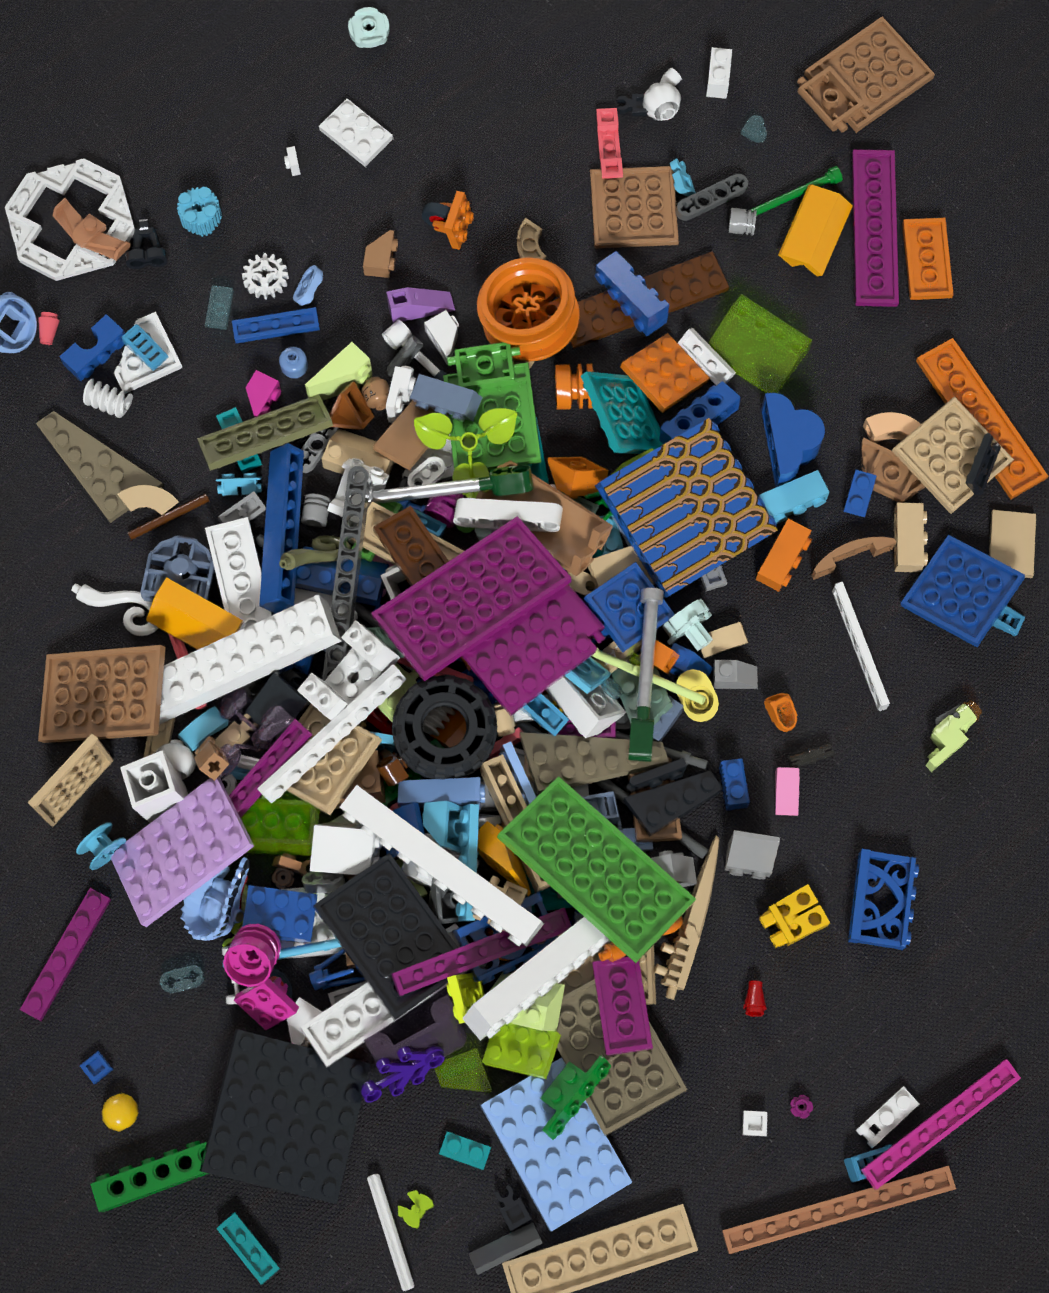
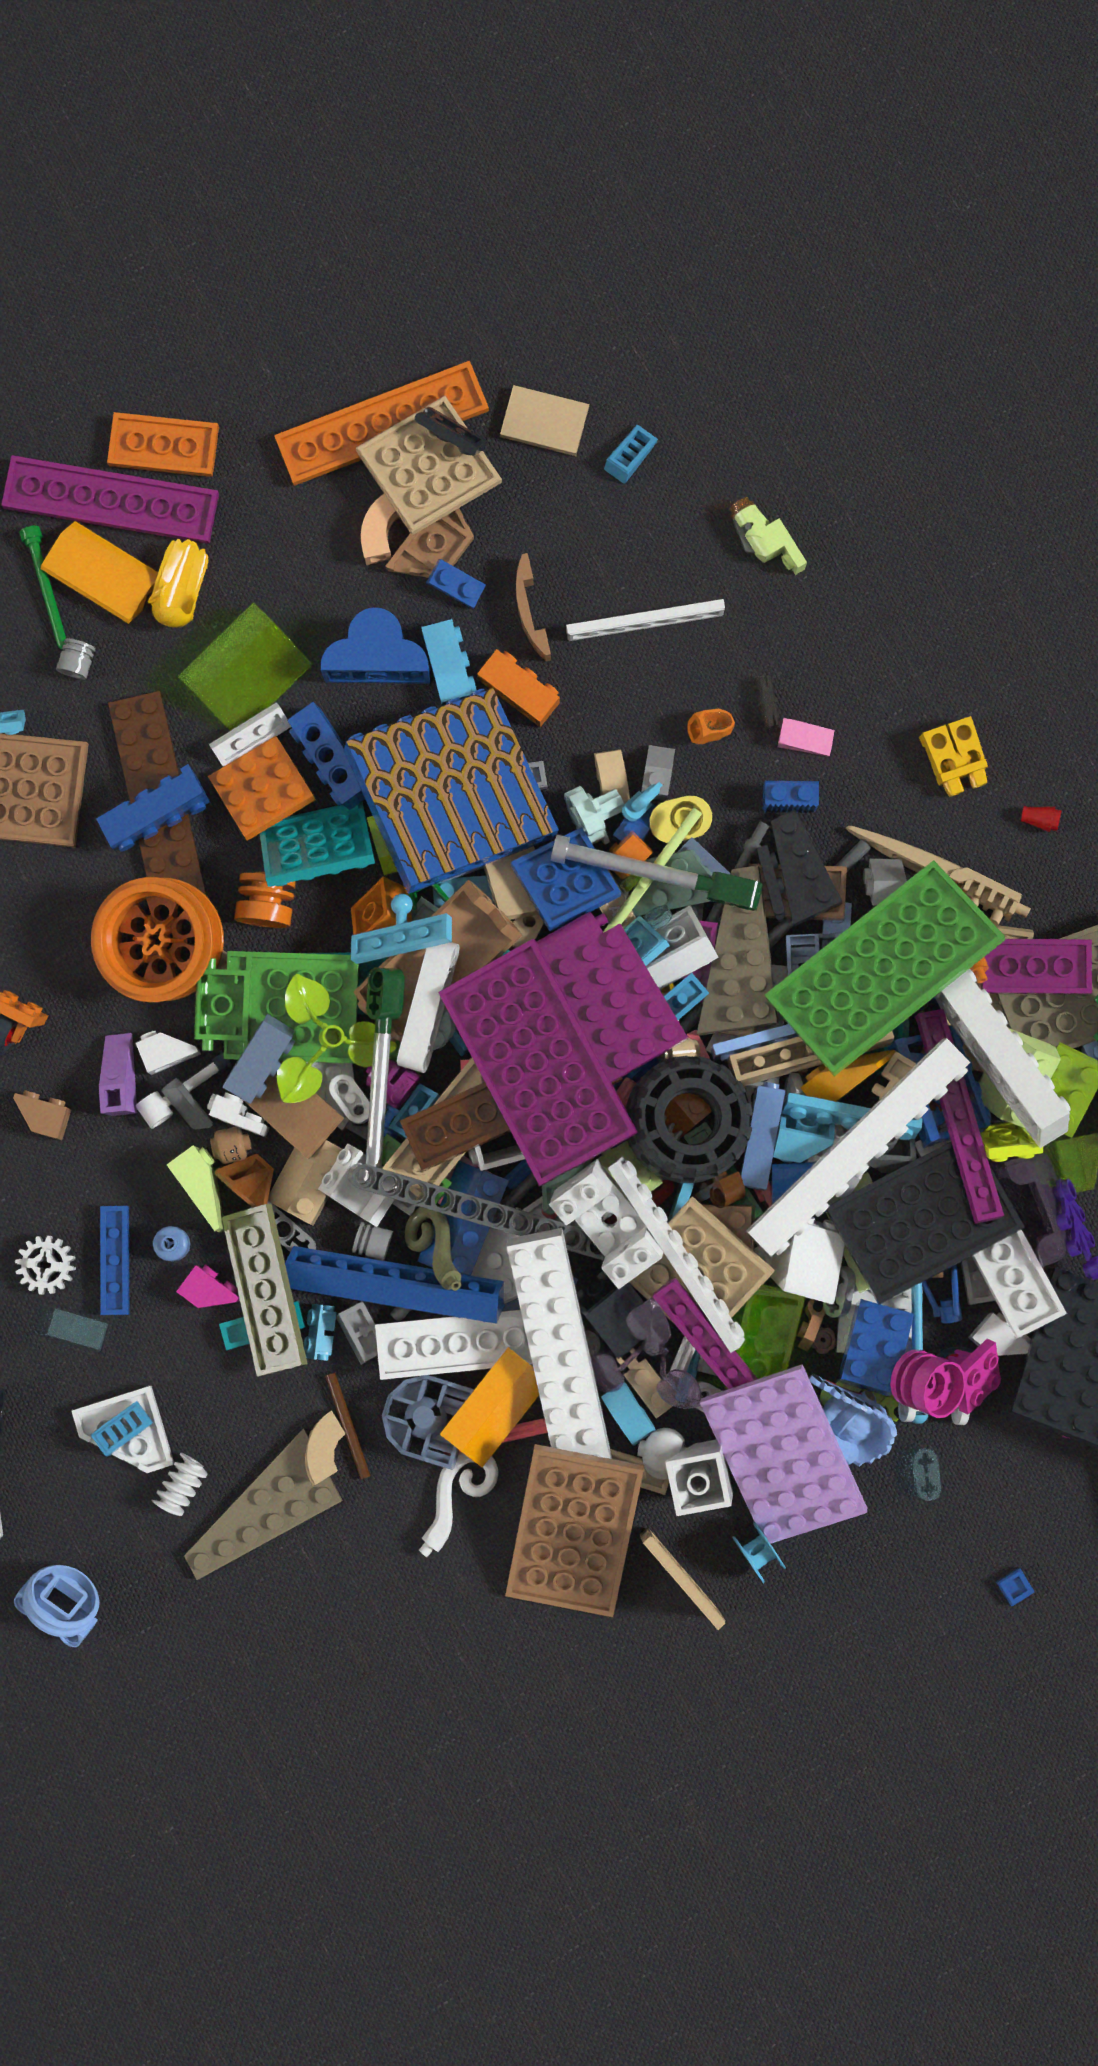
camera: 80 degrees left, 10 degrees up
(47, 327) = (68, 1551): coral cone -> none
(65, 954) = (877, 1610): magenta plate -> none
(83, 361) = (124, 1511): blue arch -> none
(119, 1112) = (1071, 1564): yellow hair -> none
(211, 758) = (675, 1406): medium nougat piece -> none
(307, 286) = (67, 1212): light blue plate -> none
(528, 240) = (58, 928): tan tile -> none
(558, 485) = (403, 936): none -> medium azure plate
(703, 659) = (640, 802): none -> medium azure piece
(710, 195) = (31, 691): dark grey beam -> none
(751, 854) = (881, 790): light grey slope -> none
(817, 286) = (178, 583): none -> yellow hair
(860, 922) = (932, 674): blue fence -> none
(910, 537) = (519, 536): tan brick -> none
(962, 590) = (598, 488): blue plate -> none

